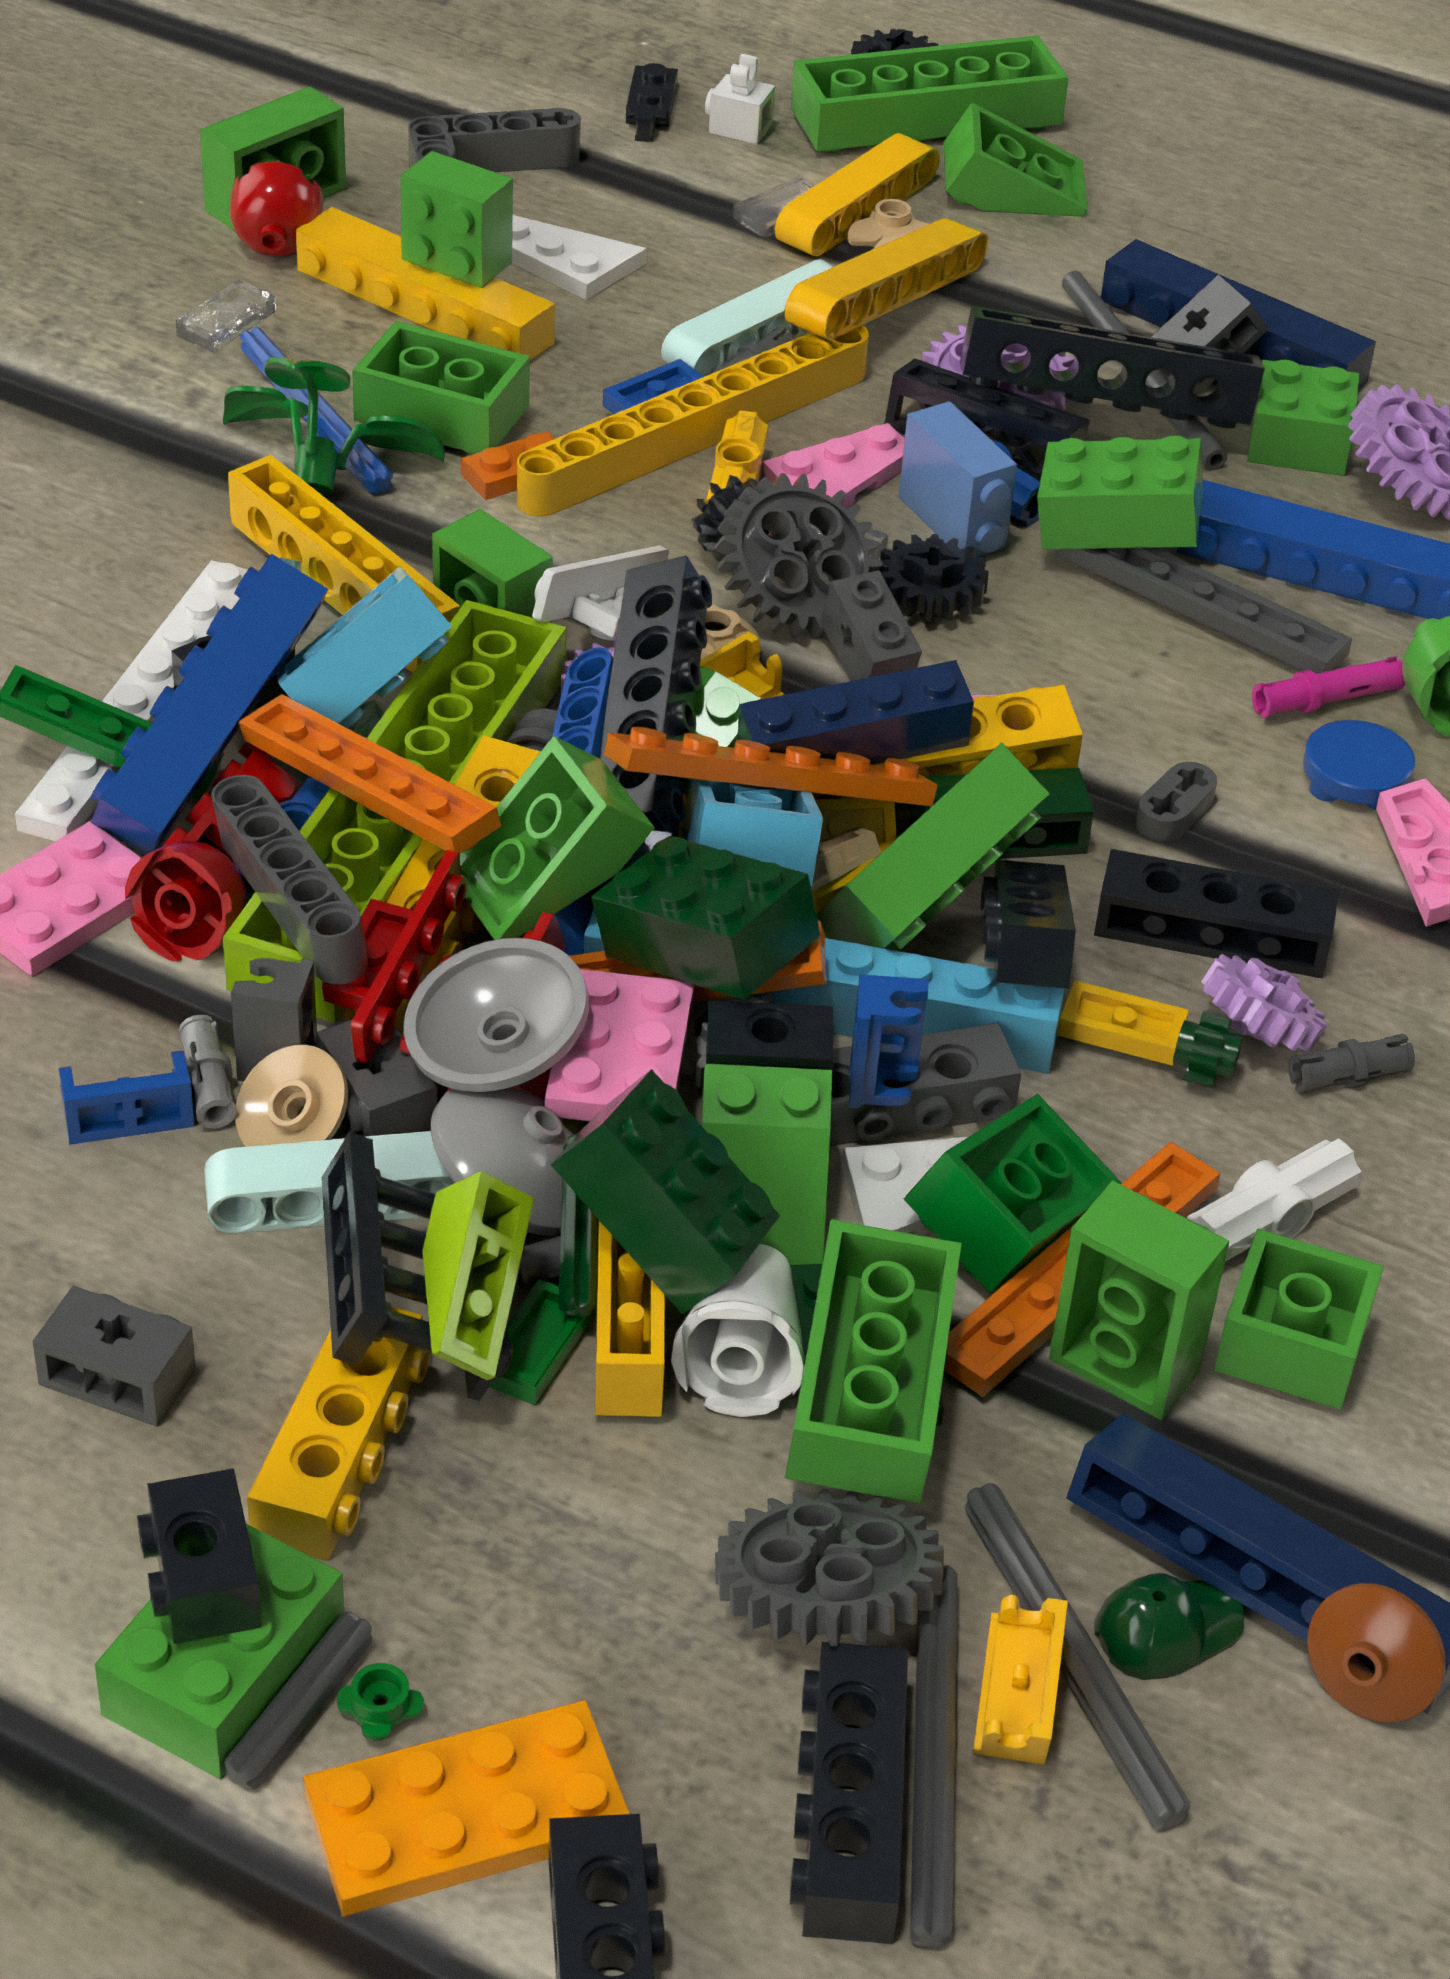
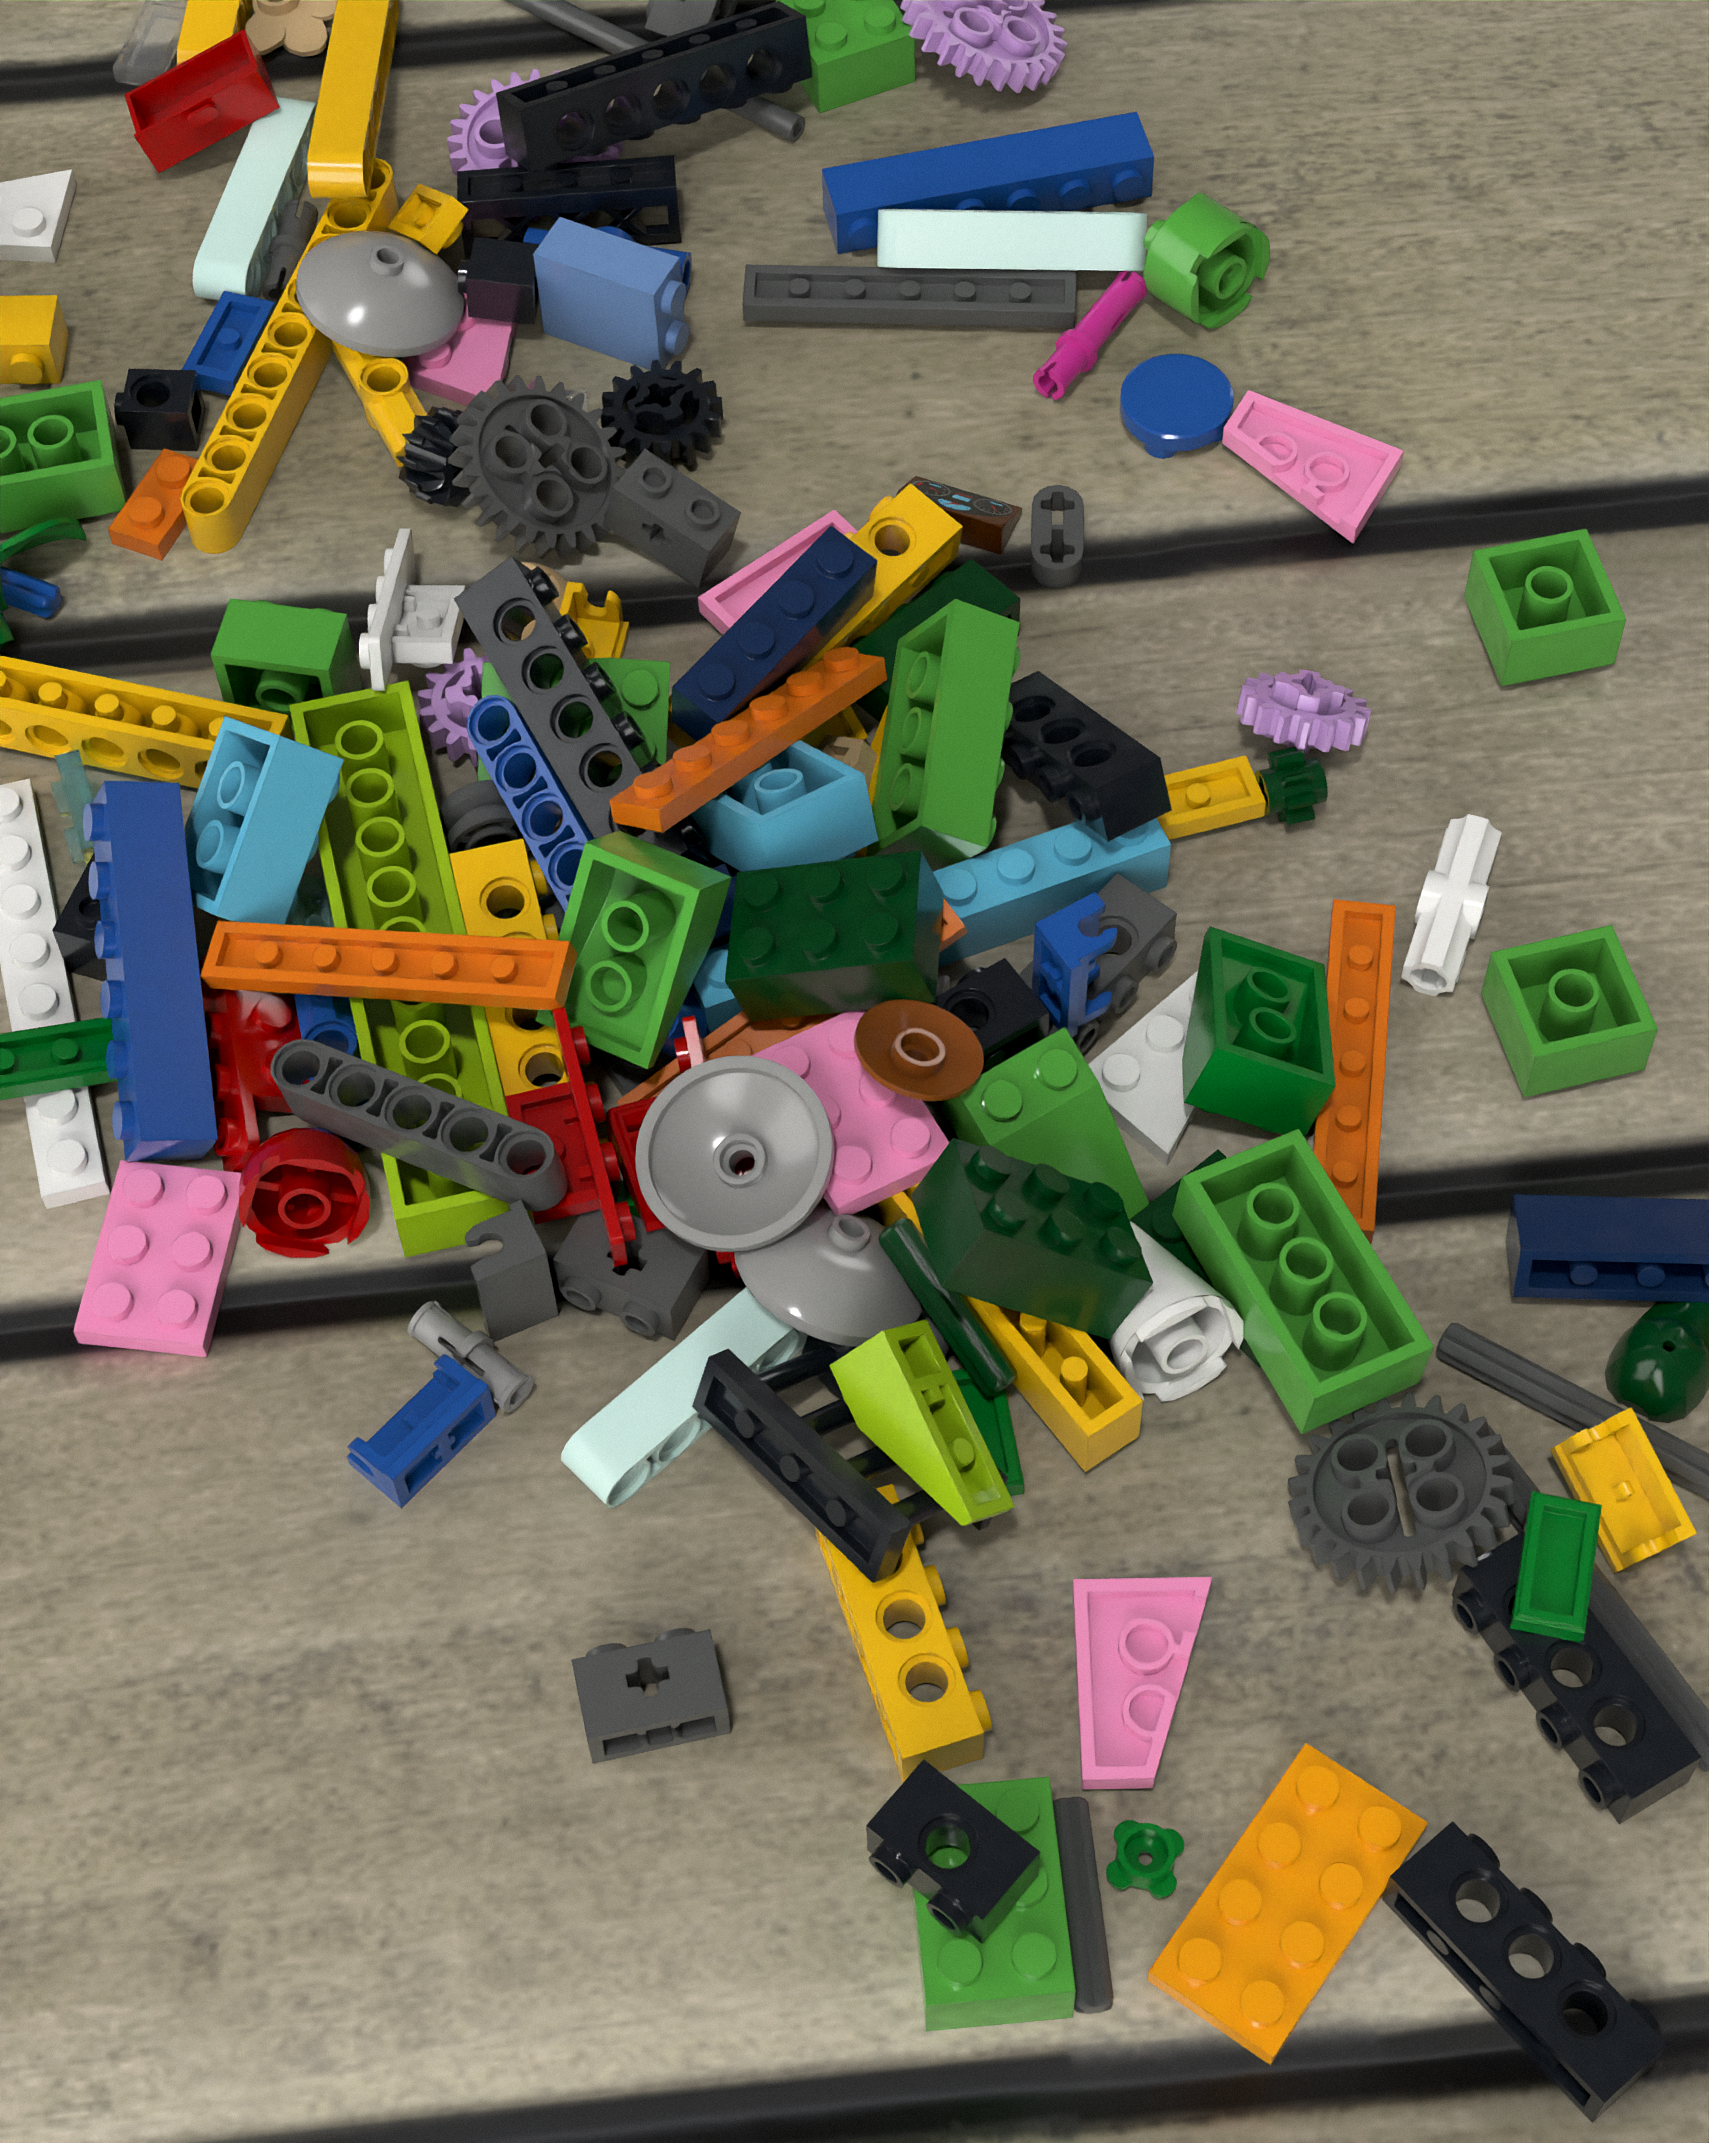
camera: 30 degrees left, 15 degrees up
(281, 1087) = (551, 1349): tan dish -> none
(493, 1564) = (1130, 1671): none -> bright pink wing
(565, 402) = (161, 409): none -> black brick
(696, 1018) = (918, 1050): none -> dark orange dish
(771, 242) = (201, 101): none -> red container
(783, 401) = (379, 294): none -> light grey dish
(868, 381) = (429, 218): none -> yellow plate
(877, 434) = (500, 281): none -> black brick
(900, 1685) = (1556, 1567): none -> green tile
(1114, 754) = (984, 520): none -> slope
(1121, 493) = (779, 230): bright green brick -> none
(1137, 1299) = (1461, 1084): bright green brick -> none
(1216, 912) = (1187, 638): black brick -> none
(1309, 588) = (1011, 239): none -> light aqua beam
(1351, 1063) = (1403, 724): dark grey pin -> none

